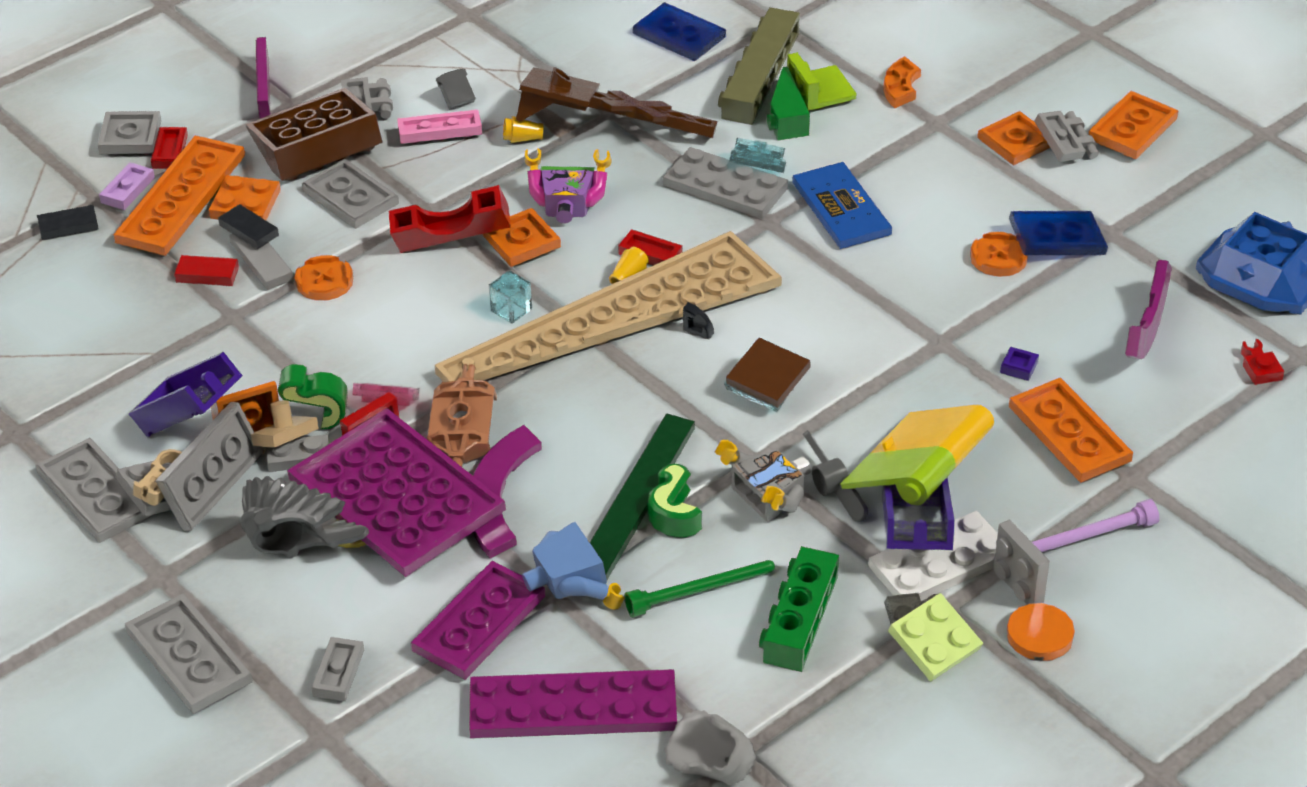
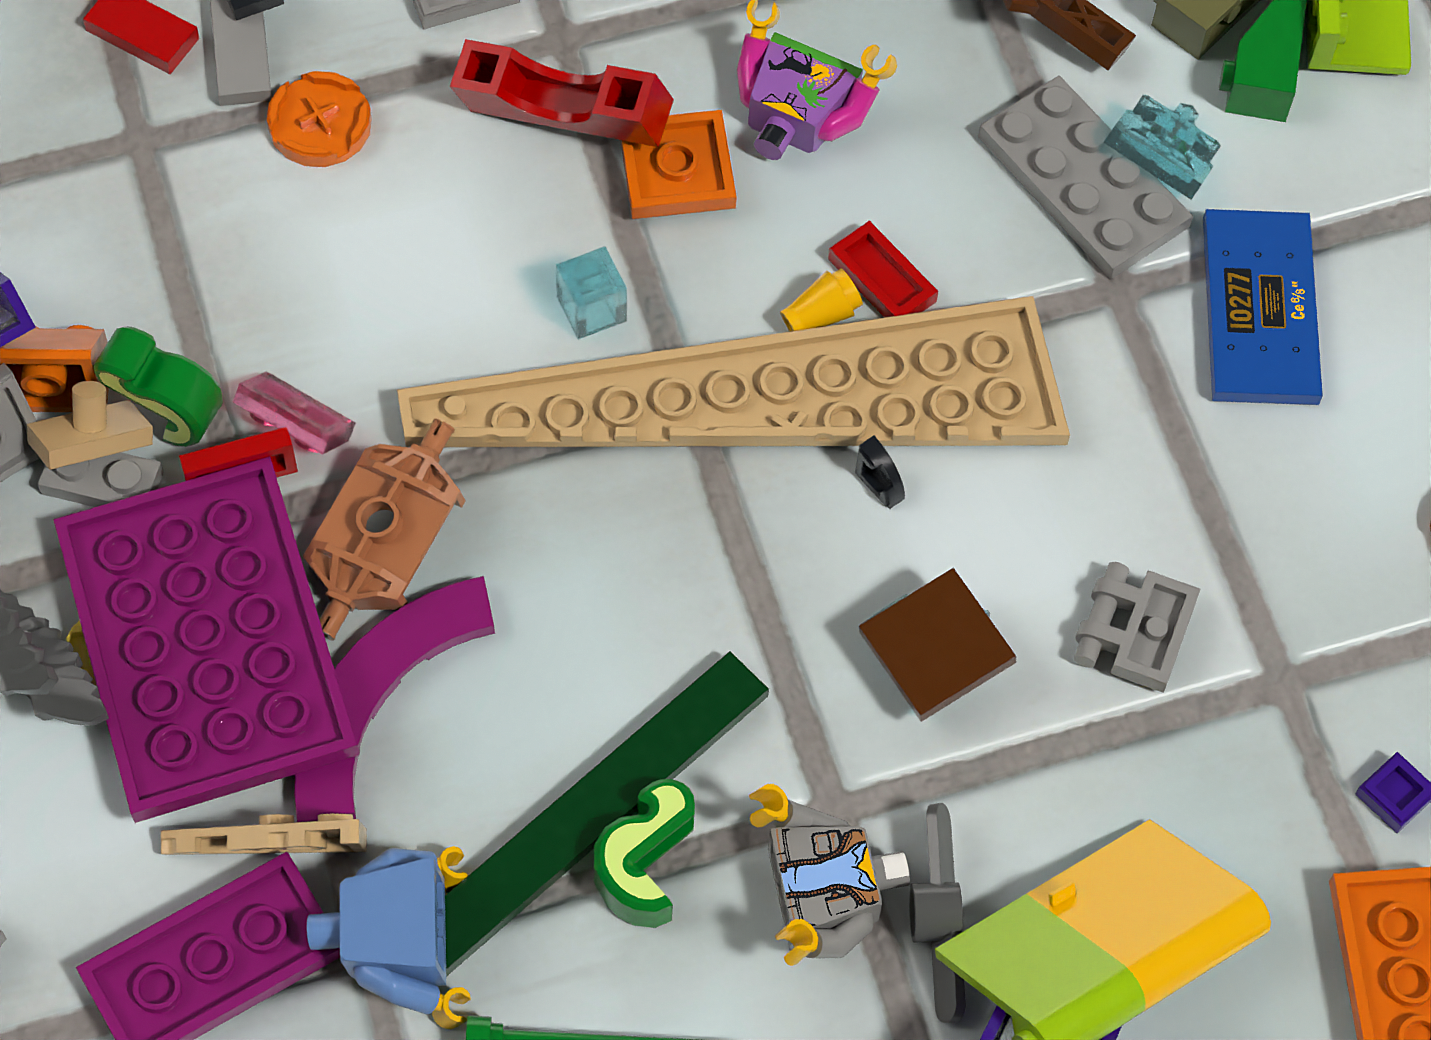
camera: 20 degrees right, 20 degrees up
(502, 547) = (273, 835): none -> tan wing
(867, 343) = (1153, 632): none -> light grey plate

